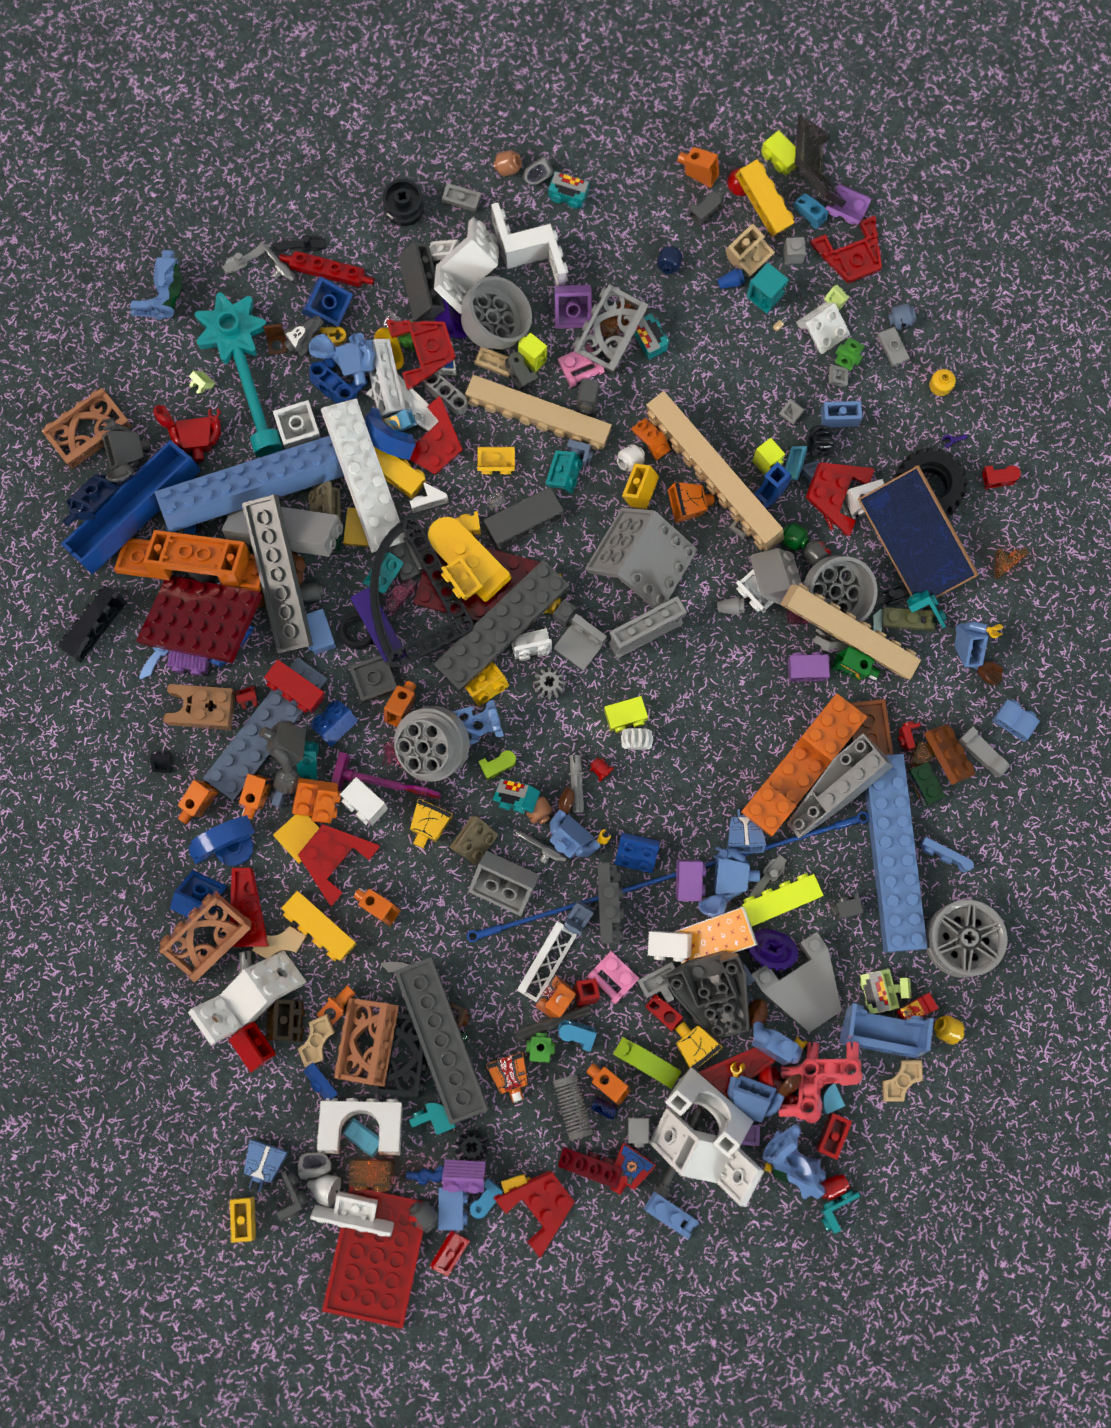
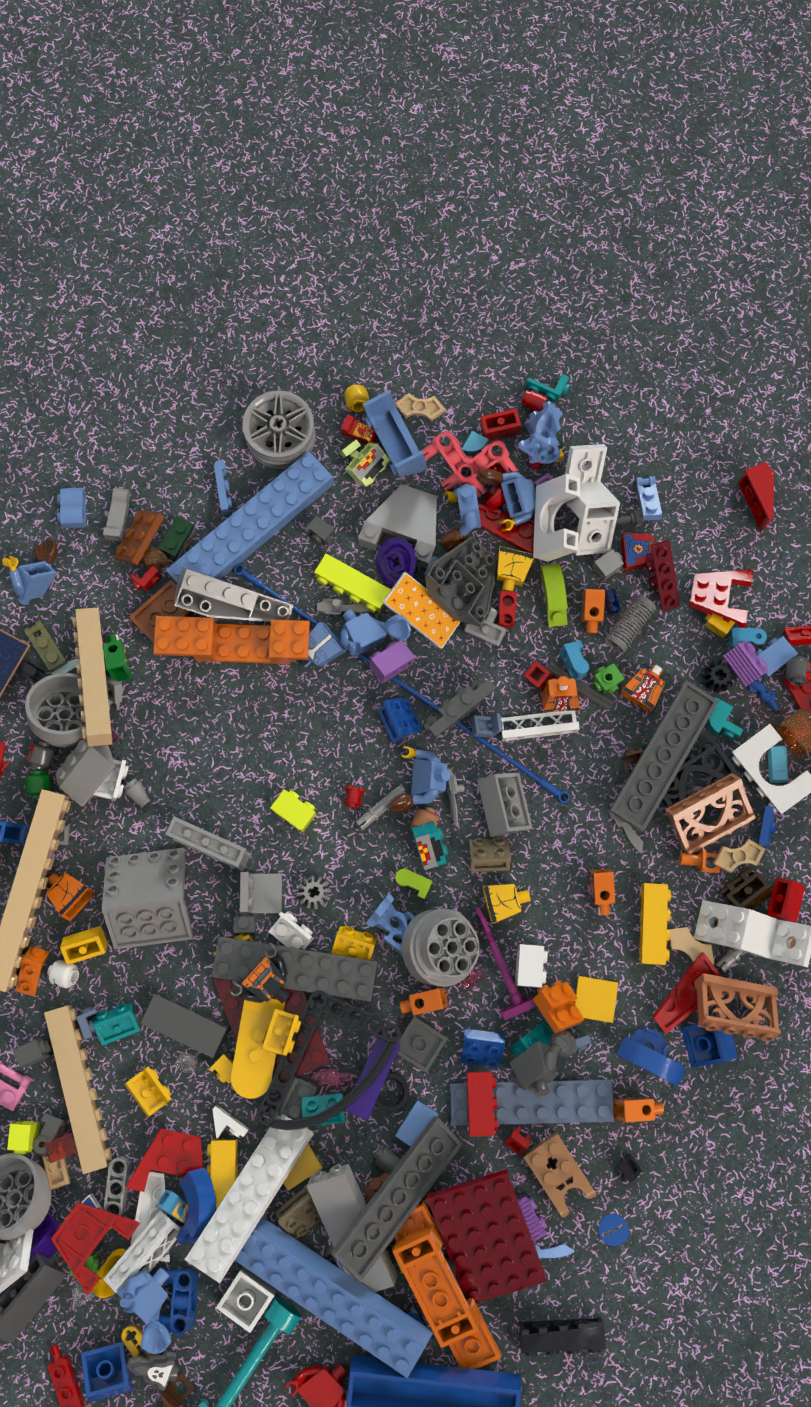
camera: 125 degrees left, 0 degrees up
(128, 718) = (614, 1232): none -> blue piece
(257, 786) = (587, 1066): orange torso -> none
(326, 852) = (592, 965): red wing -> none
(503, 371) = (61, 1148): none -> clear red bracket
(509, 592) = (264, 979): none -> torso
(607, 1321) = (758, 491): none -> red slope
(618, 972) = (503, 667): bright pink plate -> none
(636, 739) = (308, 785): white gear -> none
(670, 944) = (453, 640): white brick -> none
(808, 667) = (146, 693): medium lavender brick -> none
(923, 599) = (22, 642): teal bracket -> none

